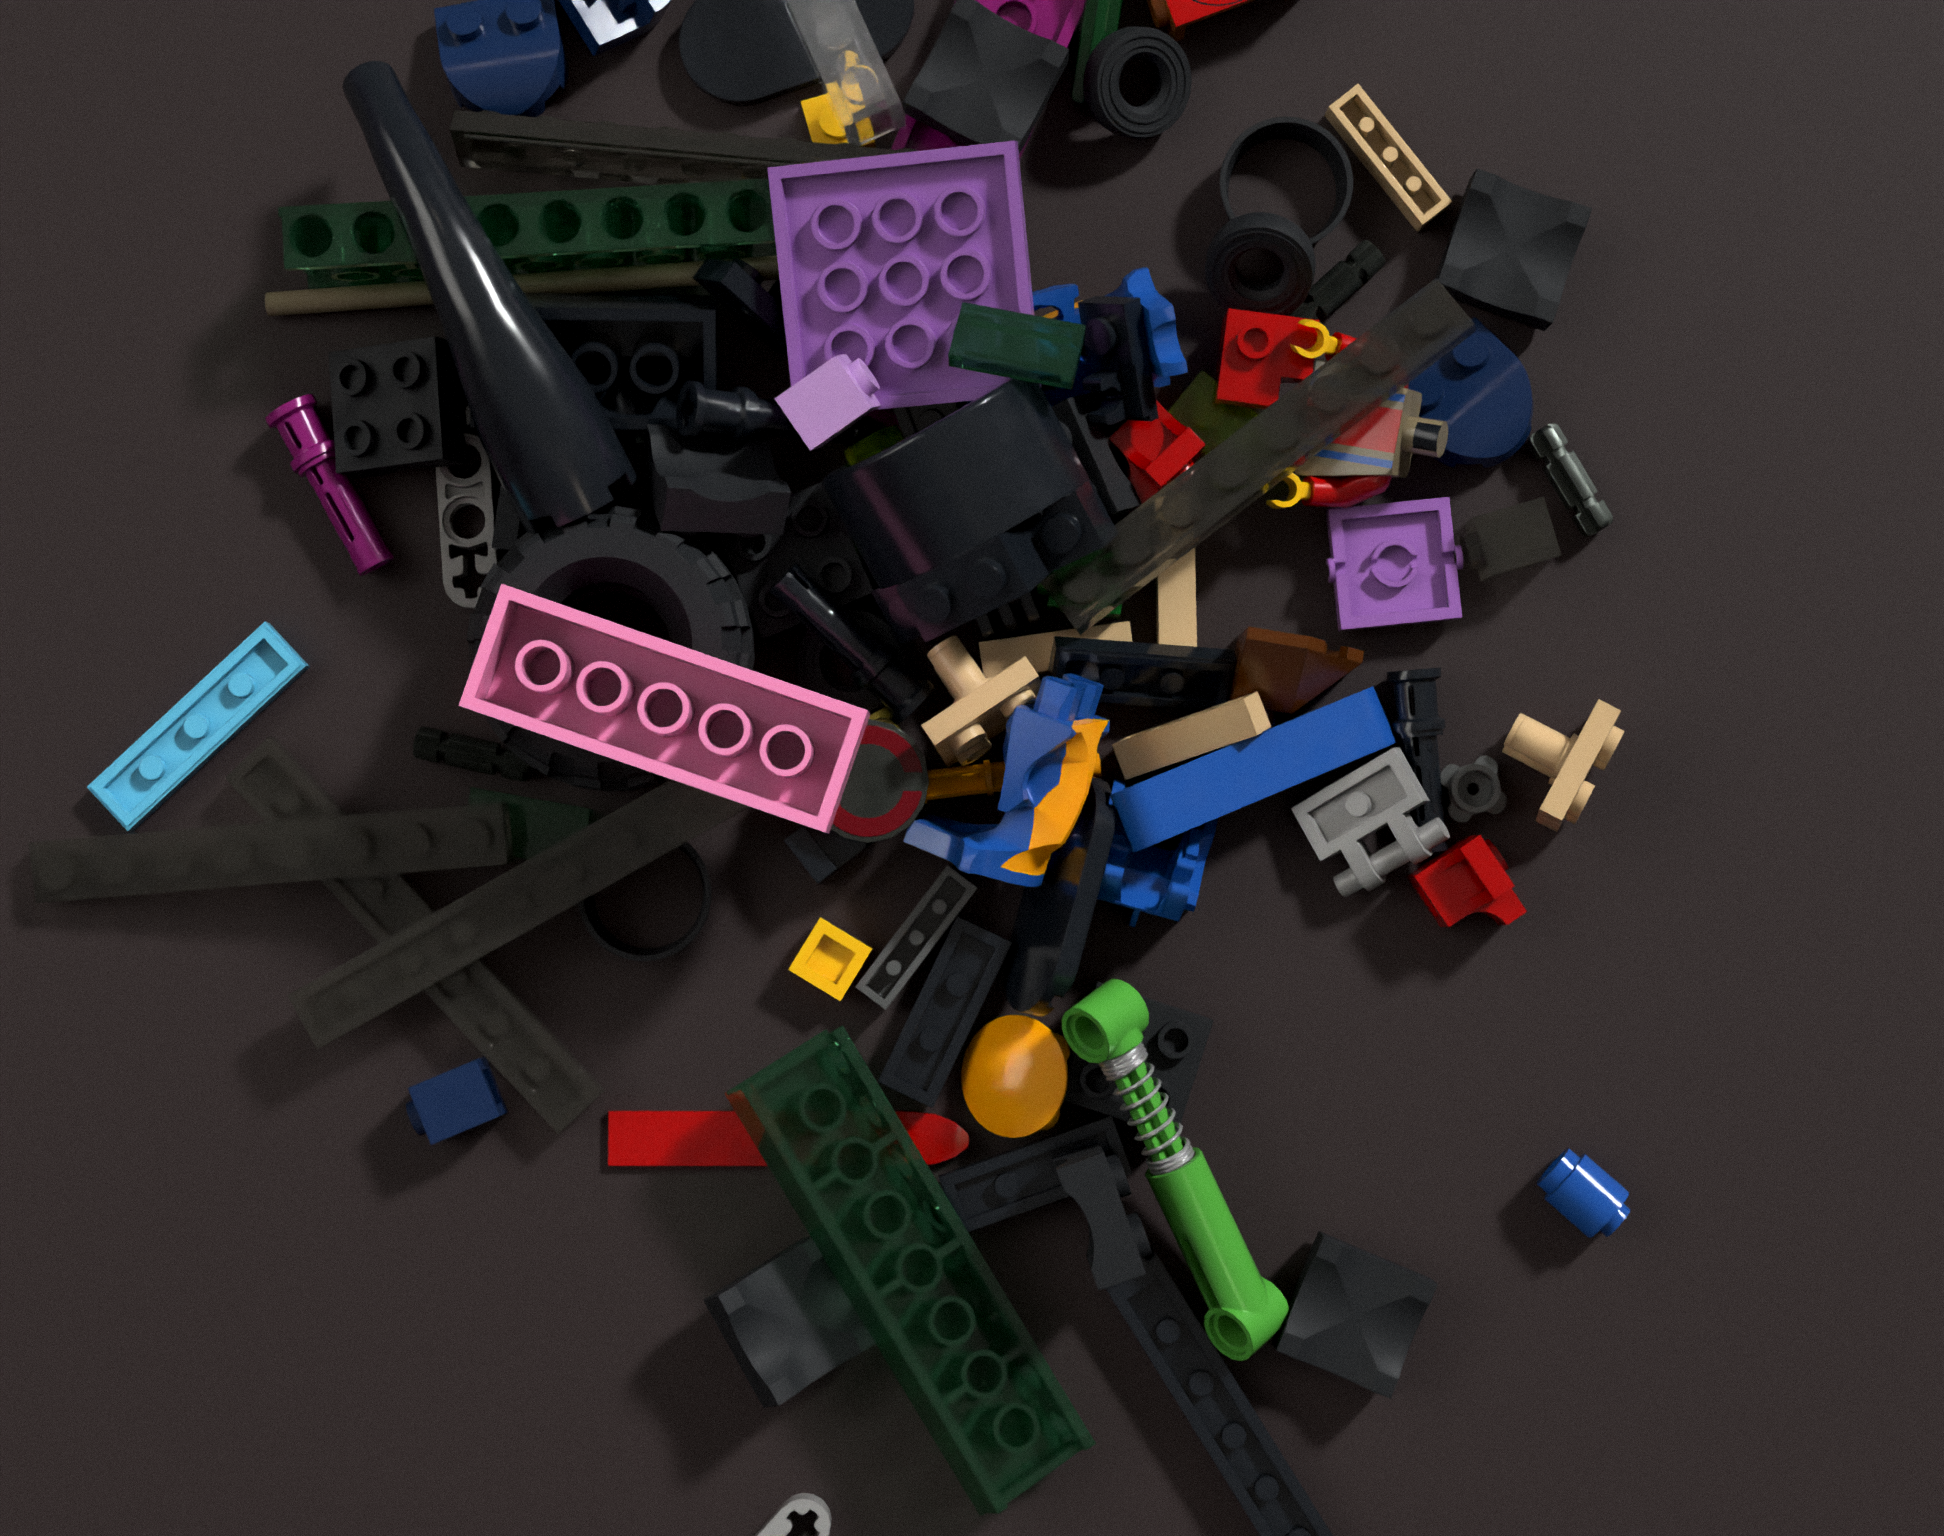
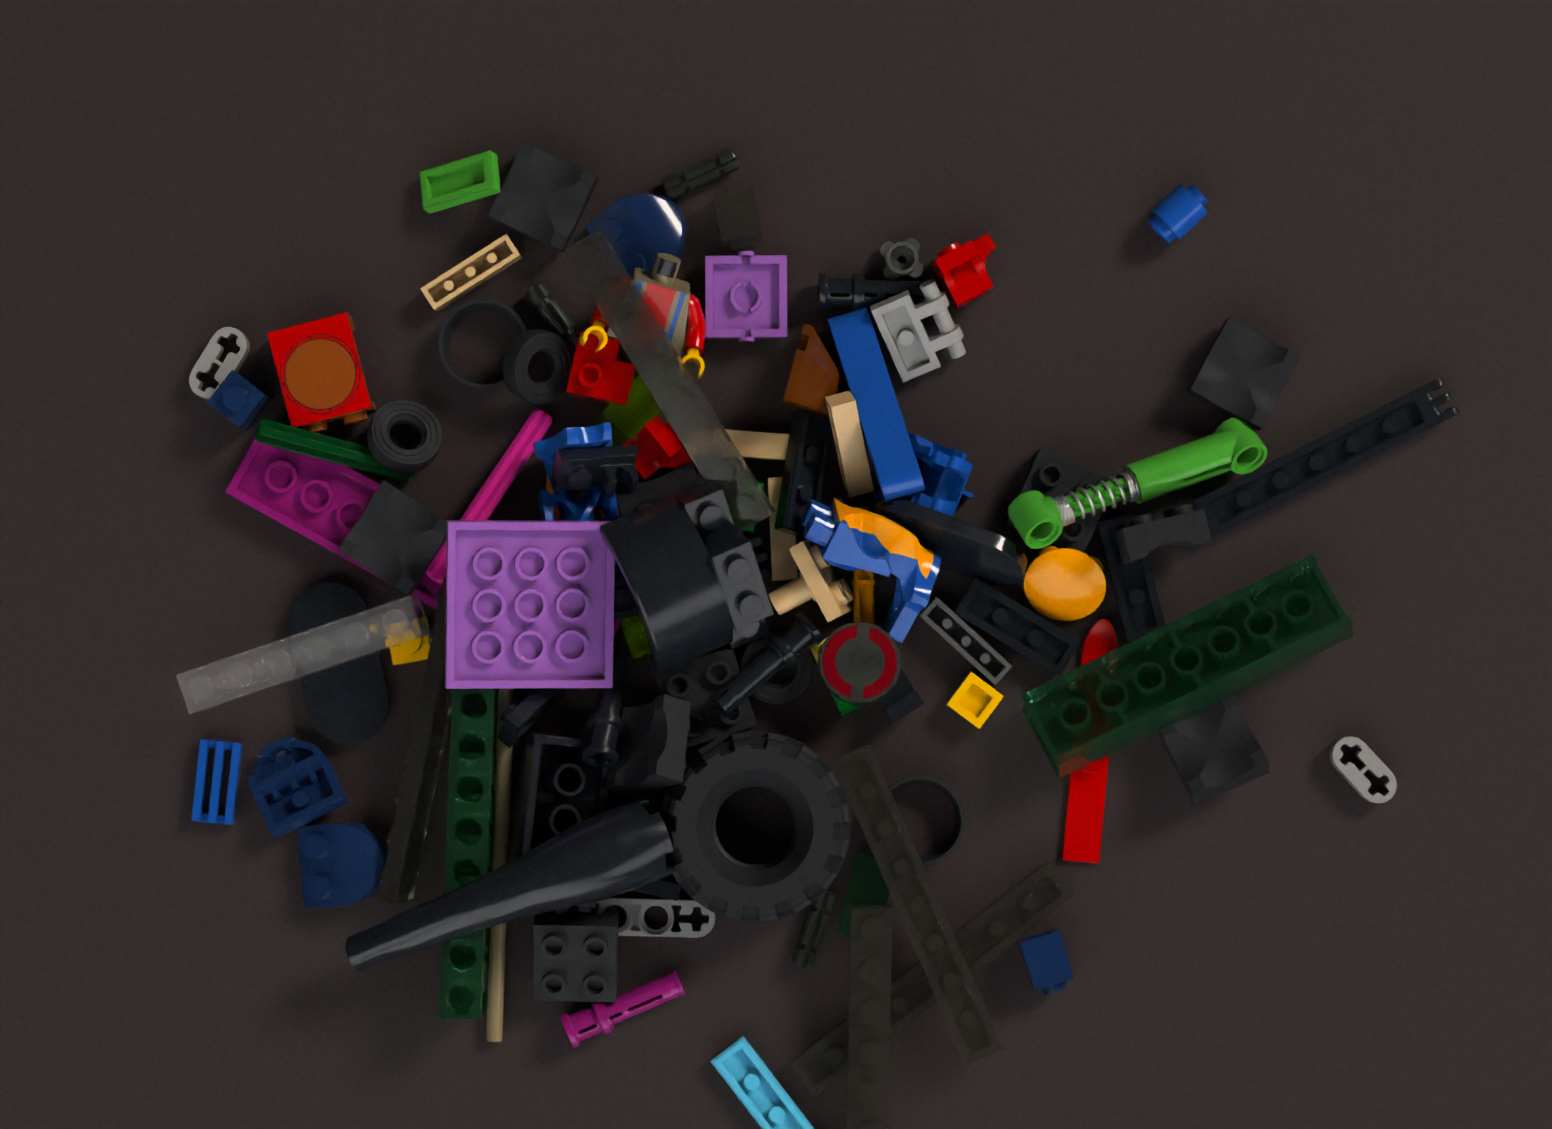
camera: 85 degrees left, 0 degrees up
(665, 708) = (804, 788): bright pink brick -> none
(830, 400) = (606, 661): lavender brick -> none
(1017, 345) = (584, 533): clear green tile -> none
(1094, 230) = (498, 481): none -> dark pink axle
(1521, 125) = (460, 182): none -> bright green tile
(1565, 759) = (890, 197): tan plate -> none

